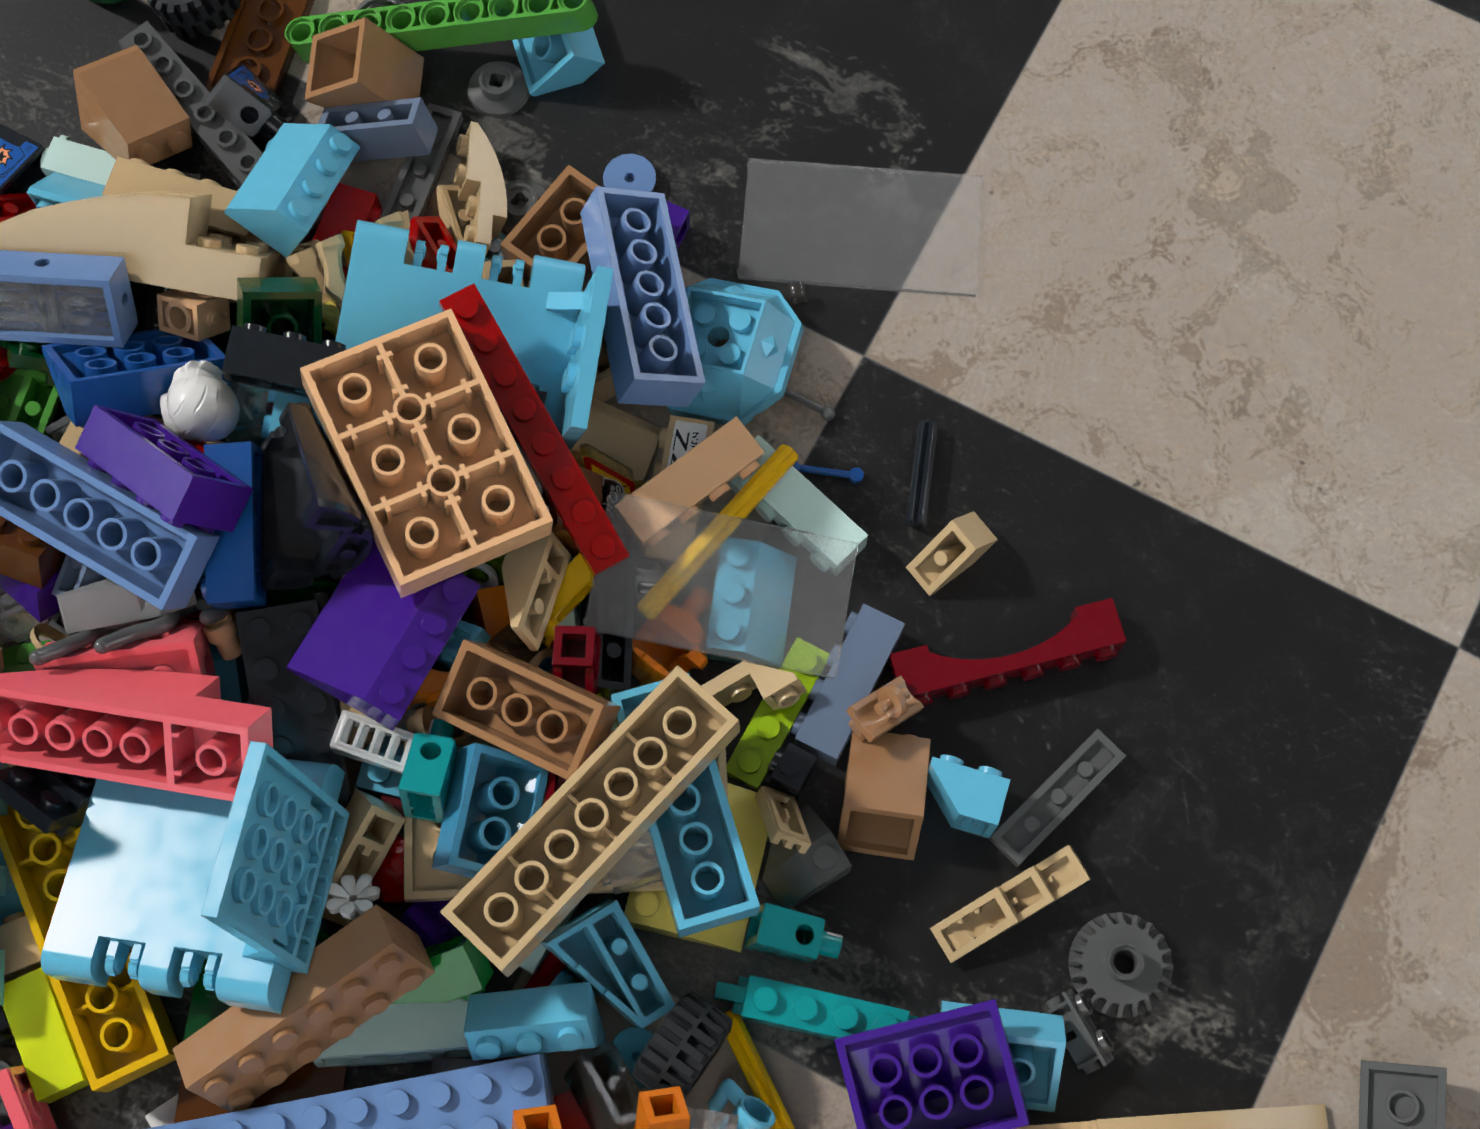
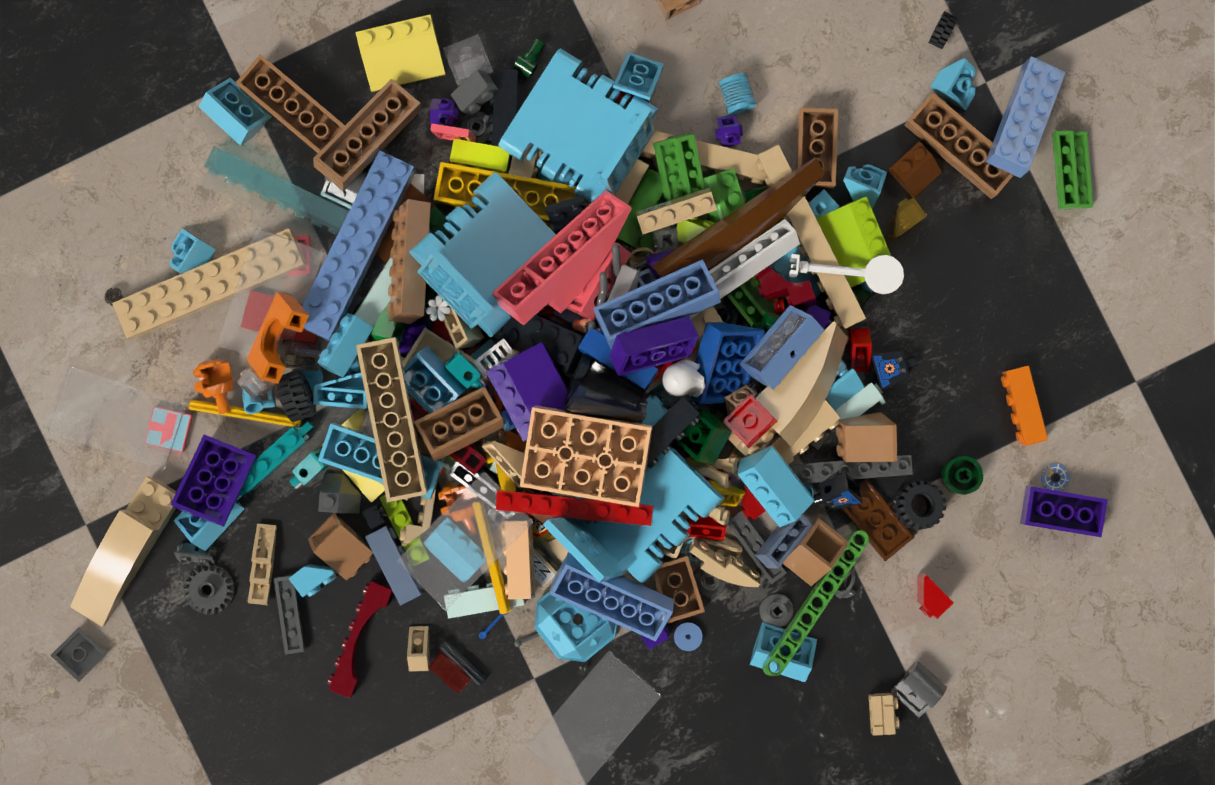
camera: 135 degrees right, 15 degrees up
(202, 262) = (750, 421): none -> red tile
(782, 820) = (356, 497): tan tile -> none
(882, 710) = (368, 569): medium nougat hips -> none
(953, 481) = (449, 673): none -> clear red slope

